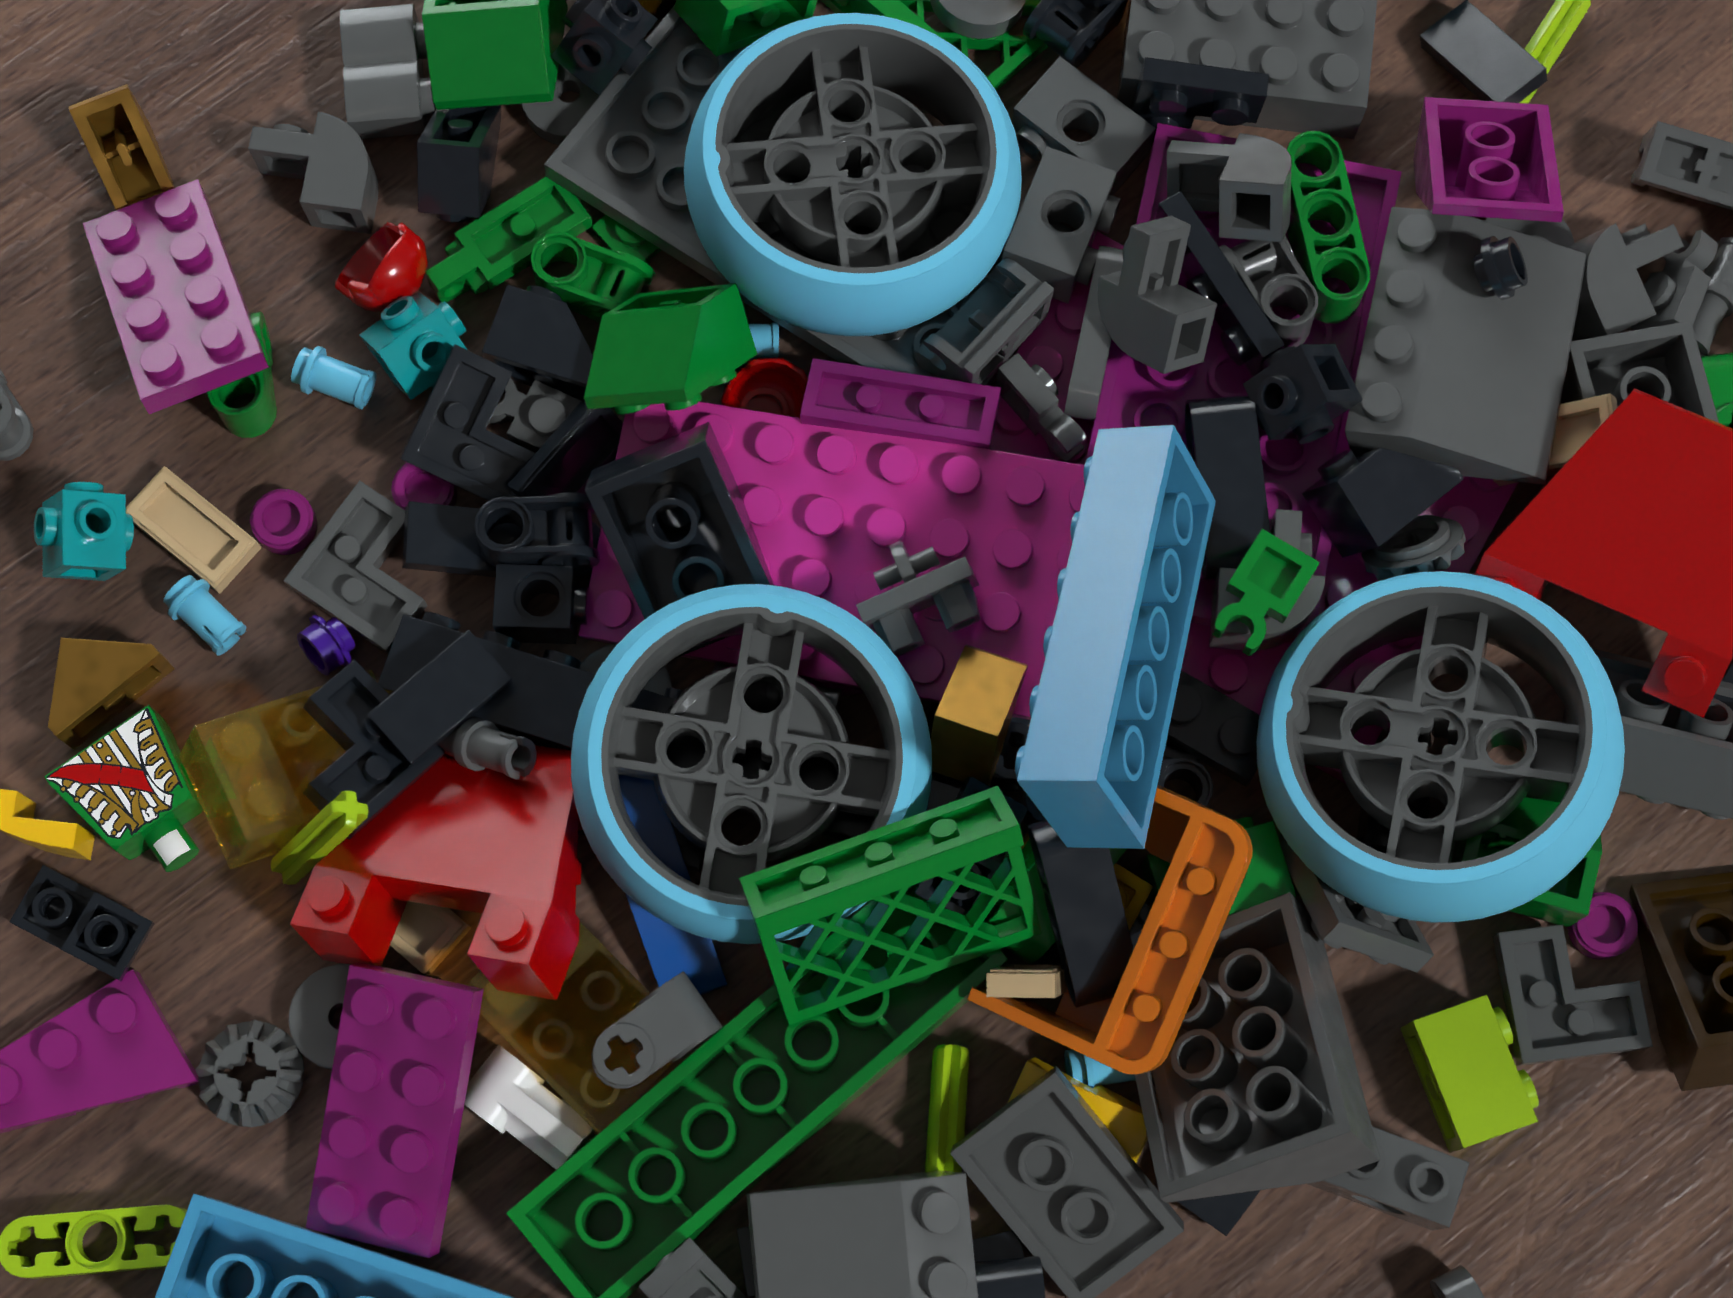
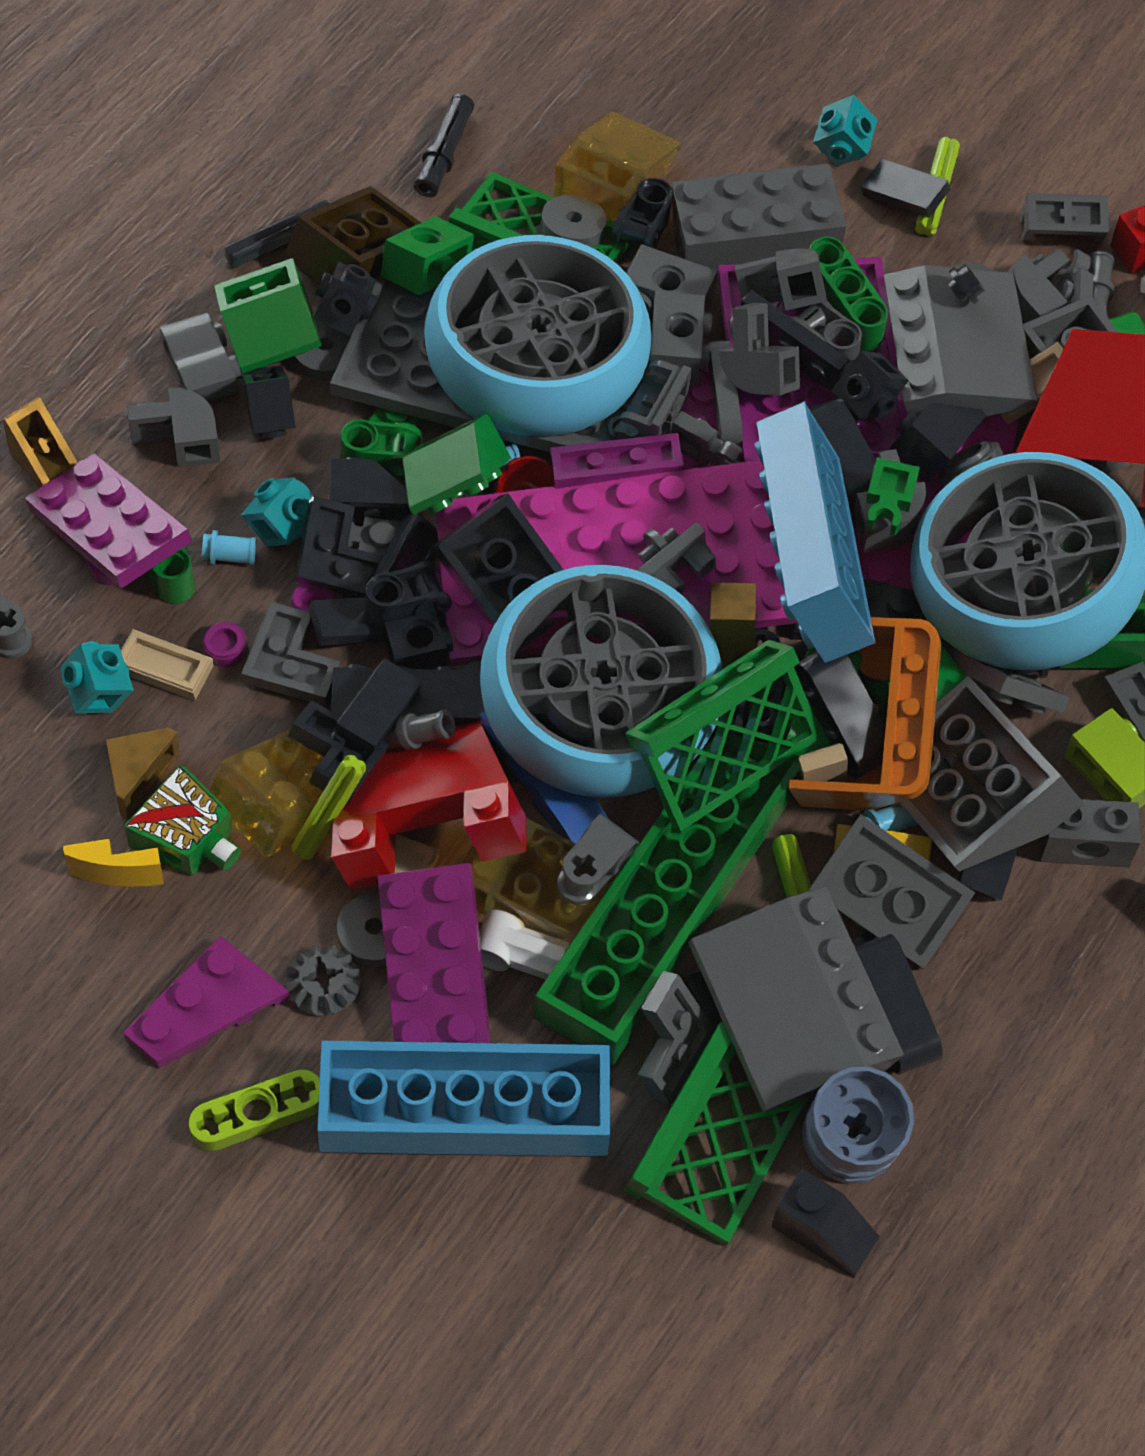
camera: 20 degrees left, 15 degrees down
(82, 922) = (175, 920): black slope -> none
(203, 613) = (191, 710): medium azure pin -> none
(326, 644) = (281, 707): dark purple plate -> none
(384, 268) = (242, 472): red hair -> none
(503, 239) = (316, 438): green hinge -> none
(1178, 91) = (730, 240): black plate -> none
(1487, 160) = (931, 236): magenta slope -> none

